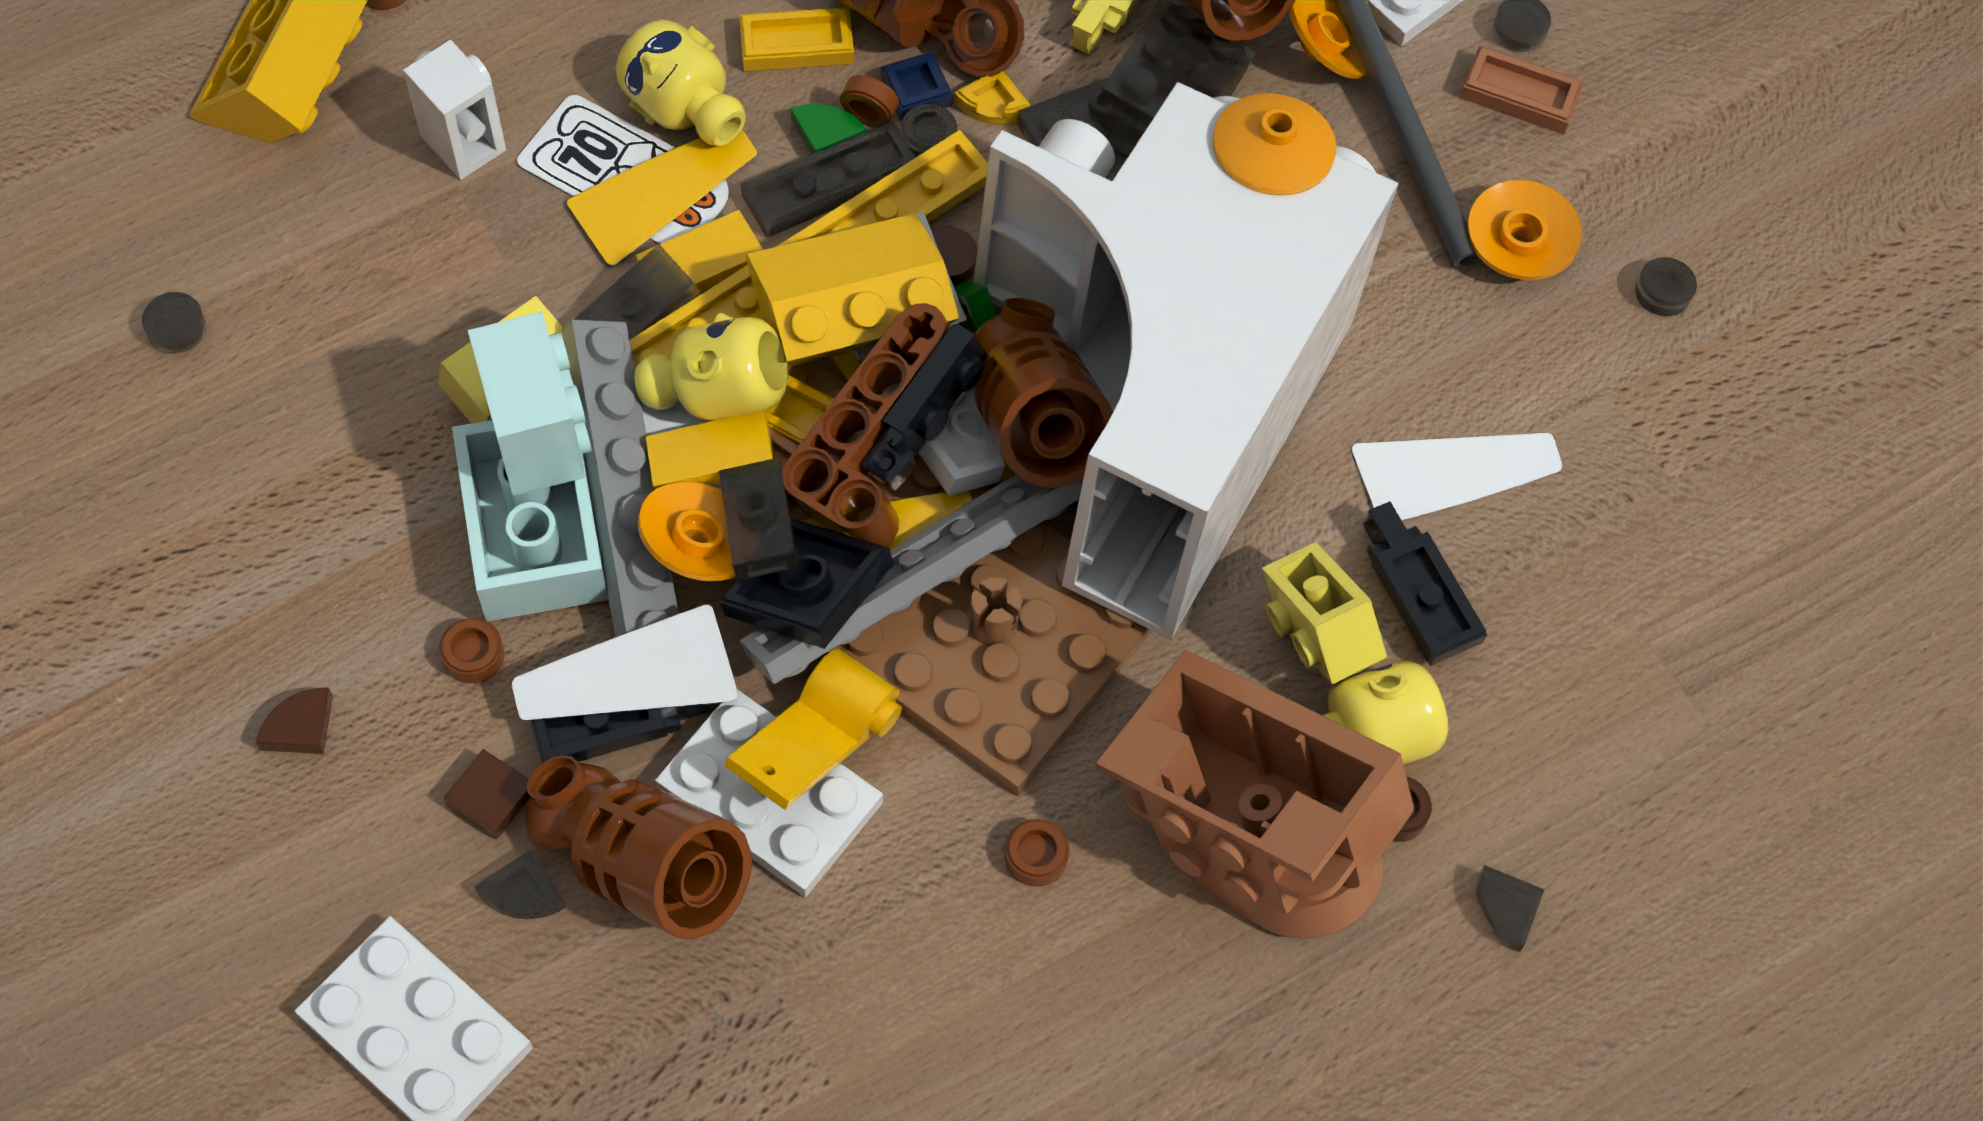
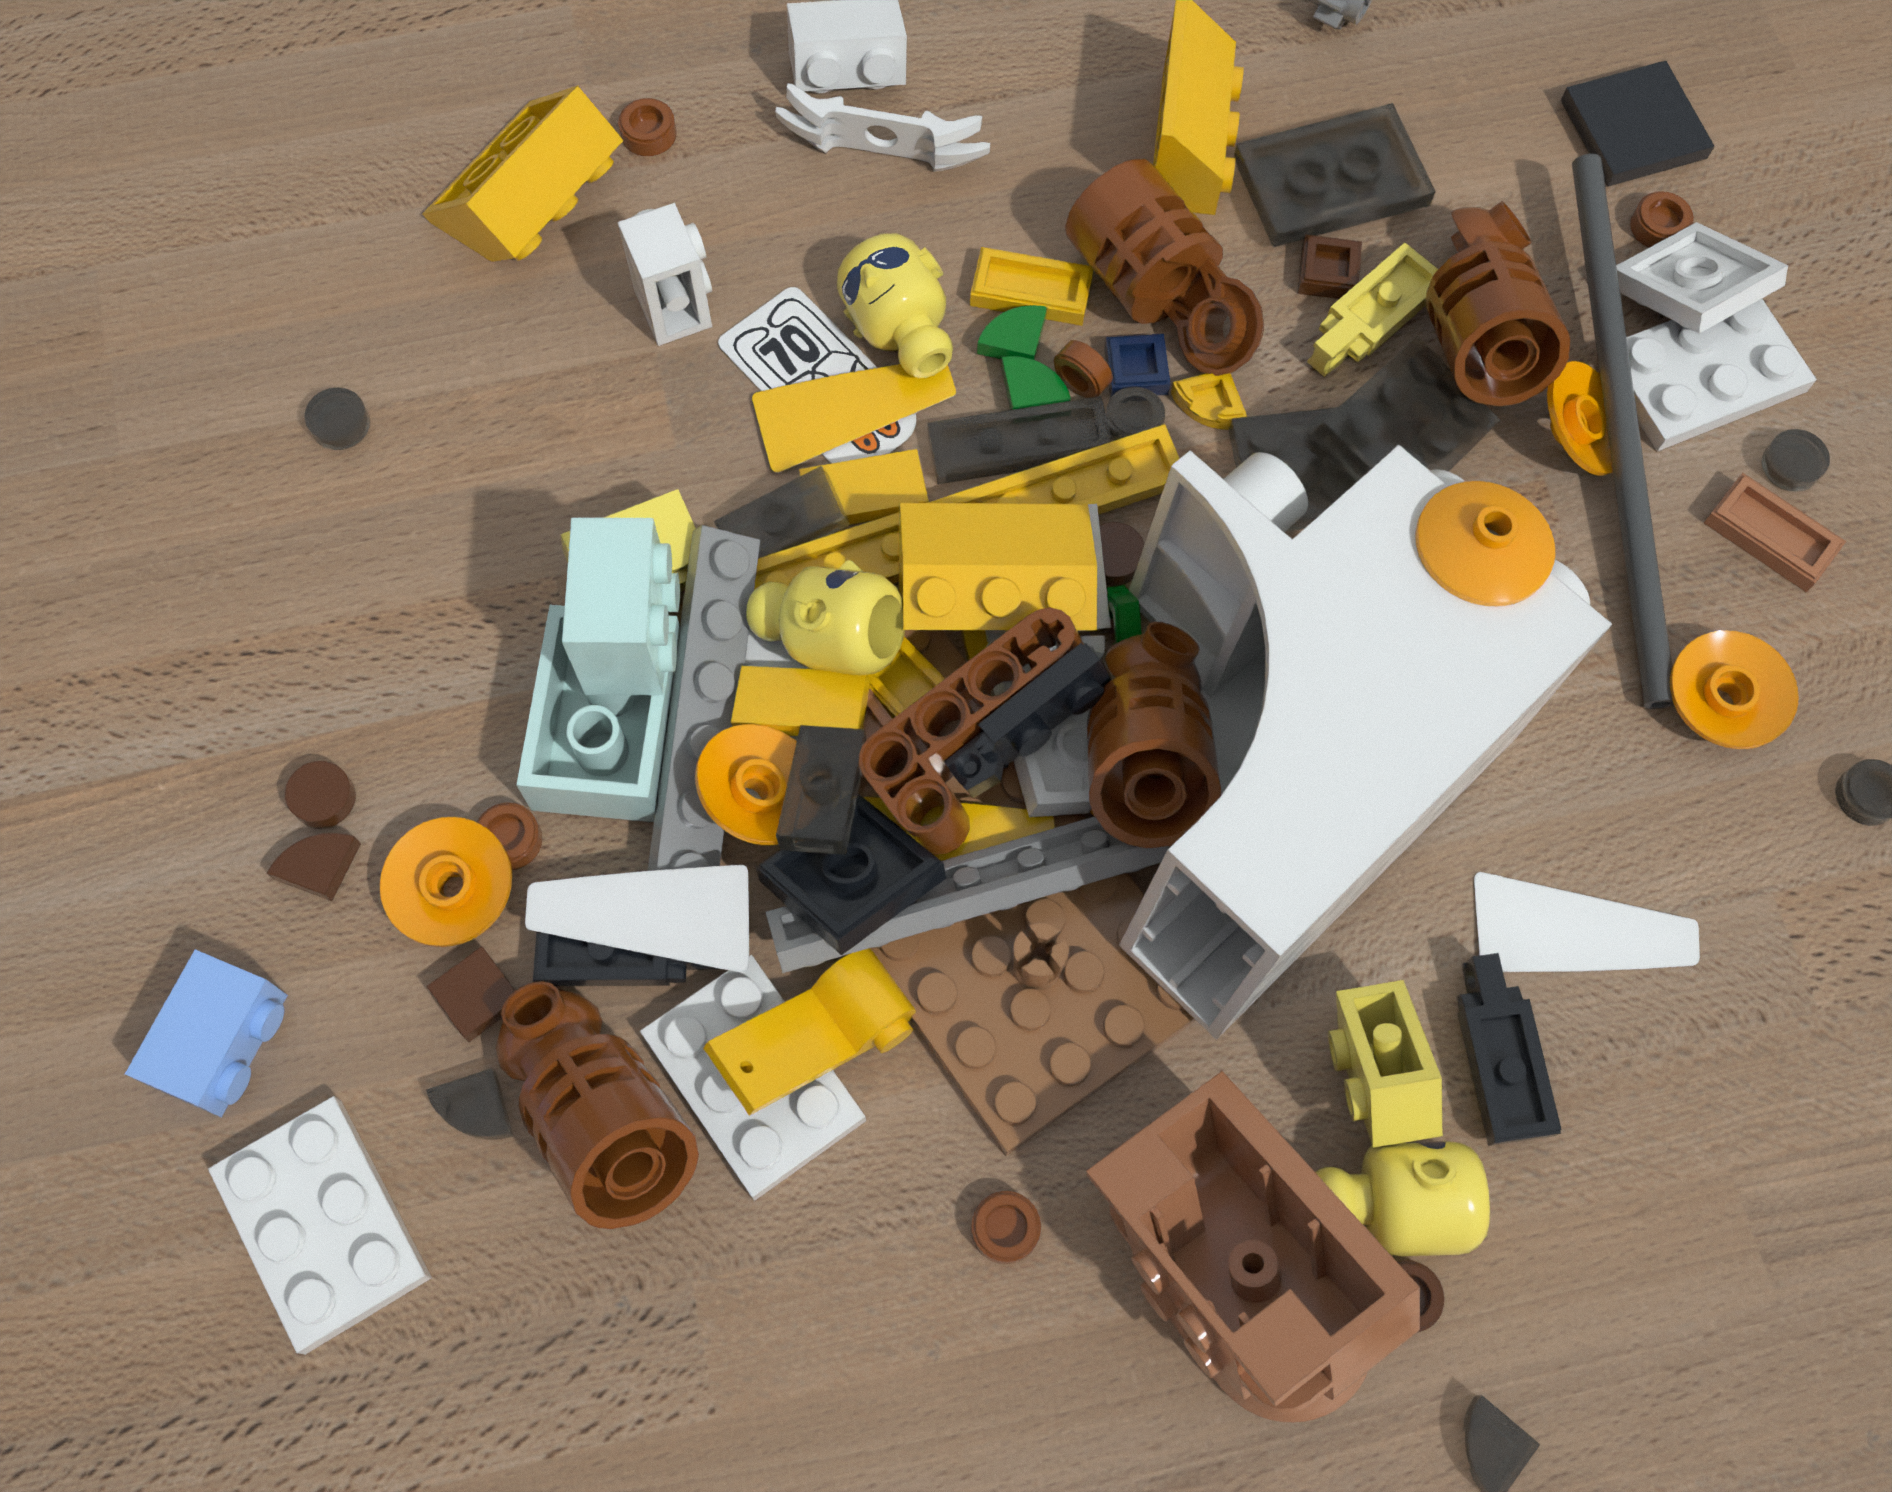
camera: 20 degrees right, 5 degrees up
(254, 895) = (209, 1034): none -> light blue brick
(280, 662) = (320, 794): none -> reddish brown tile
(416, 678) = (421, 866): none -> light orange dish
(793, 85) = (1013, 333): none -> green tile

